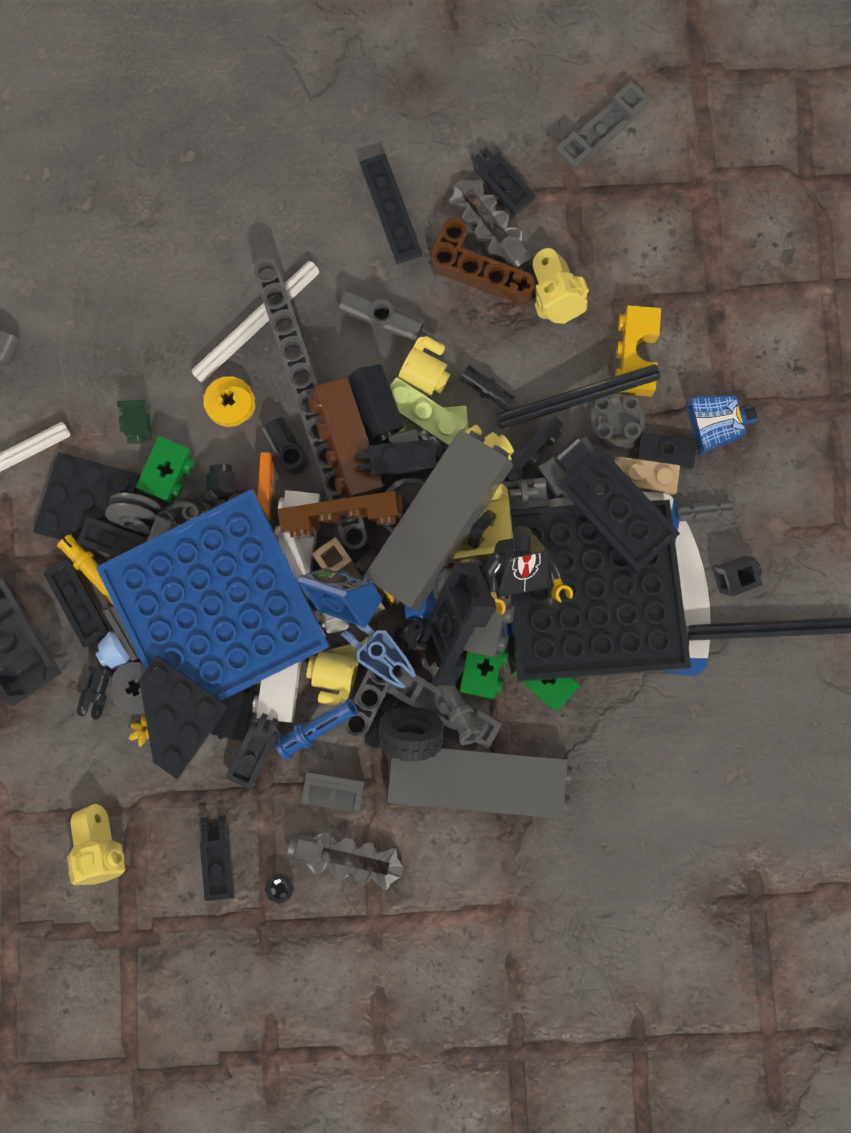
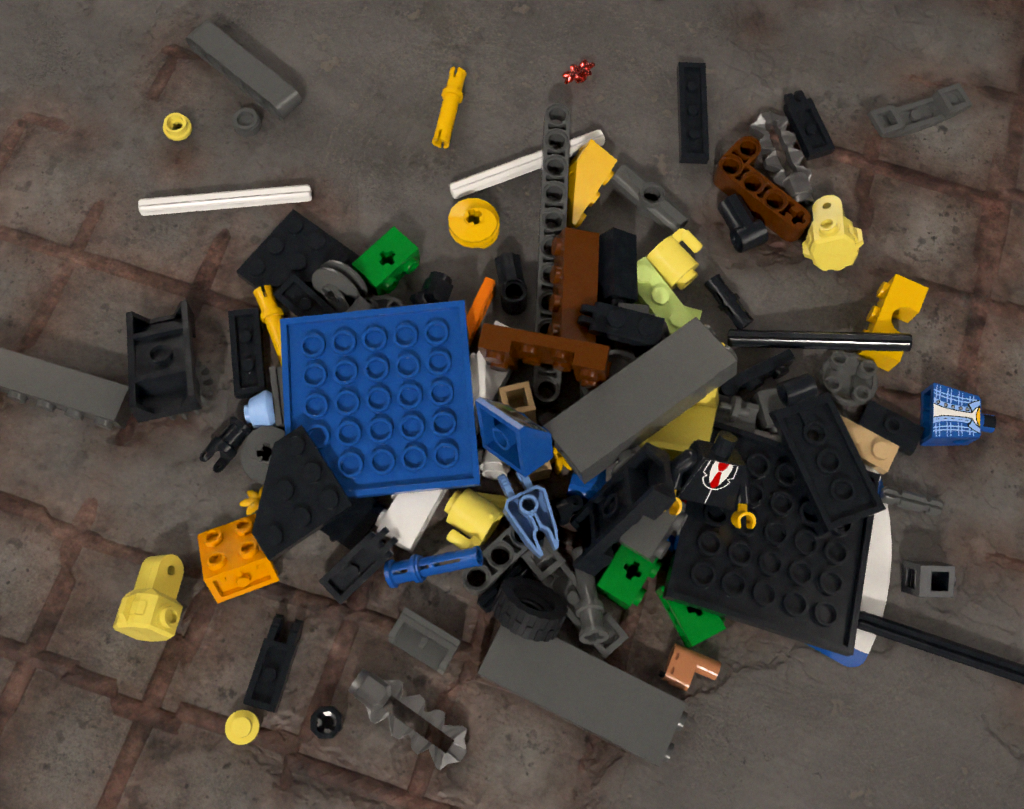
camera: 15 degrees right, 10 degrees down
(135, 420) = (378, 207): clear green brick -> none
(144, 787) = (234, 560): none -> light orange bracket
(159, 283) = (452, 97): none -> yellow pin
(212, 919) = (242, 727): none -> light yellow plate
(268, 208) = (578, 73): none -> clear red plant
(314, 316) = (586, 174): none -> yellow slope
(479, 311) = (744, 229): none -> black piece
(479, 527) = (677, 424): black tile -> none
(556, 726) = (682, 665): none -> nougat piece

